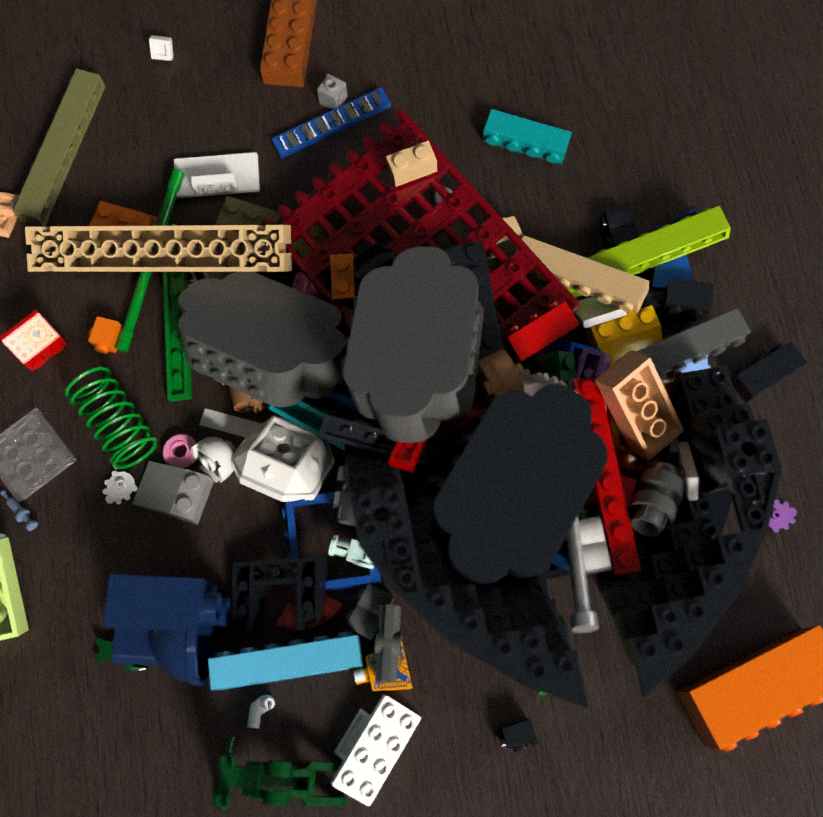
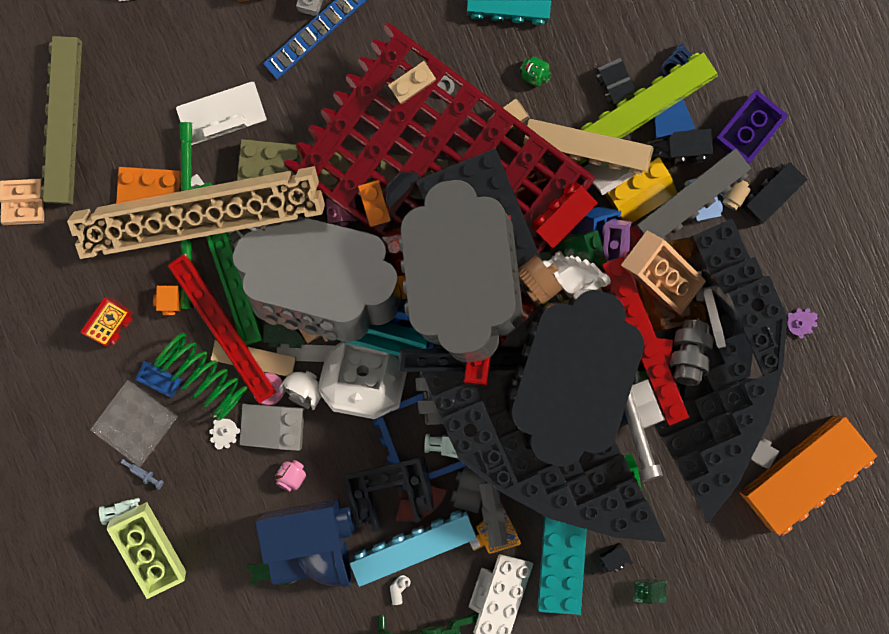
camera: 15 degrees left, 15 degrees up
(68, 415) = (159, 381): none -> blue tile
(151, 377) = (222, 328): none -> red tile
(174, 415) = (269, 361): none -> tan tile
(175, 549) = (290, 475): none -> bright pink head
(211, 395) = (278, 334): none -> clear green slope
(456, 720) = (561, 568): none -> teal brick
(539, 201) = (535, 71): none -> green head
(552, 784) = (650, 591): none -> clear green brick
(713, 651) = (764, 453): none -> light grey brick
(731, 358) = (737, 195): none -> tan brick
(756, 295) = (751, 126): none -> dark purple brick

